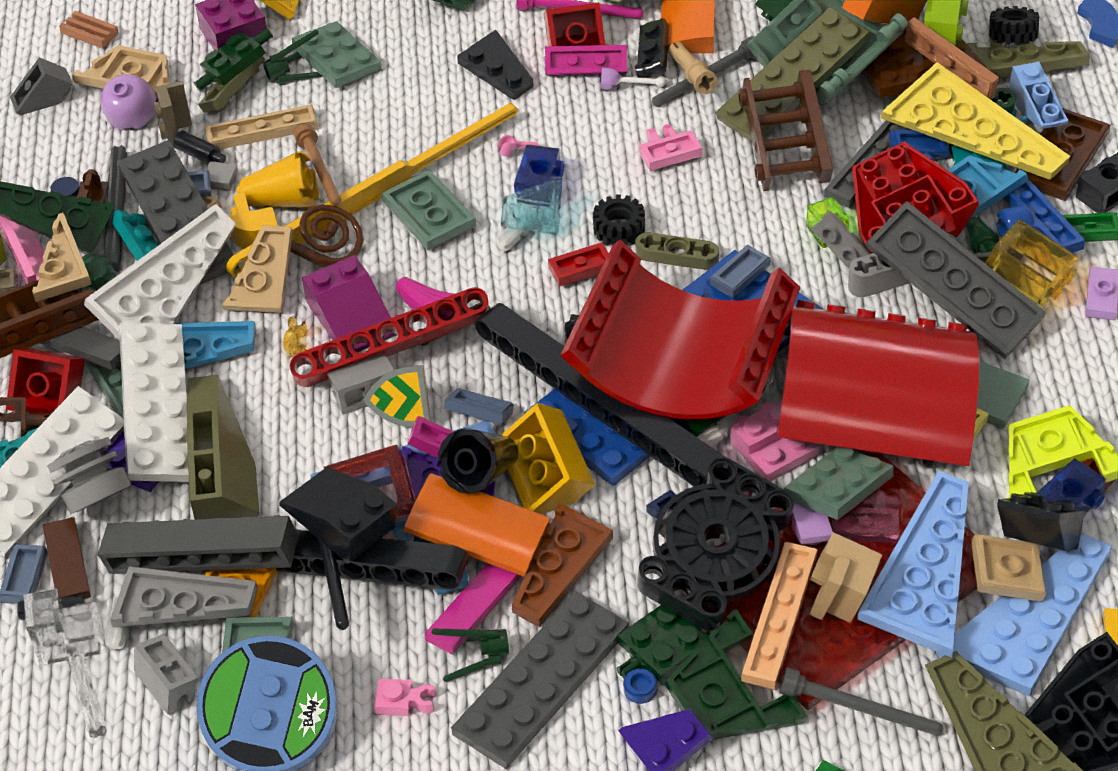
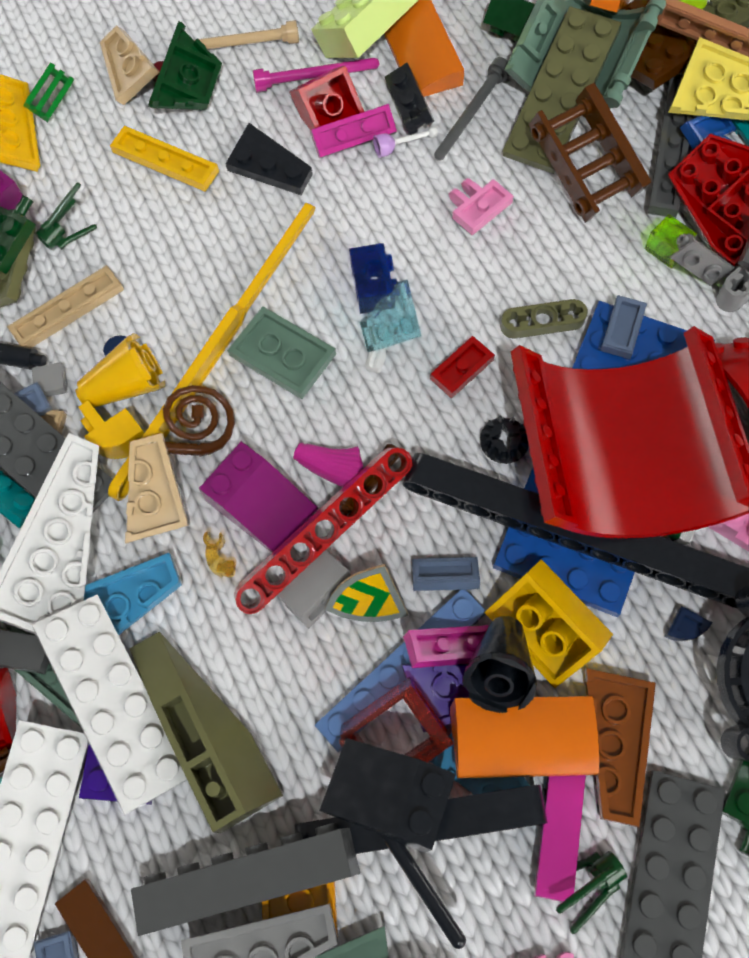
camera: 20 degrees left, 20 degrees up
(89, 475) = (84, 840): light grey wheel -> none
(306, 138) = (120, 307): medium nougat piece -> none
(338, 55) = (105, 199): sand green plate -> none
(405, 37) = (164, 158): none -> yellow plate
(508, 143) = (326, 248): bright pink hand -> none
(618, 209) = (476, 289): black tyre -> none
(695, 71) = (467, 112): tan pin -> none

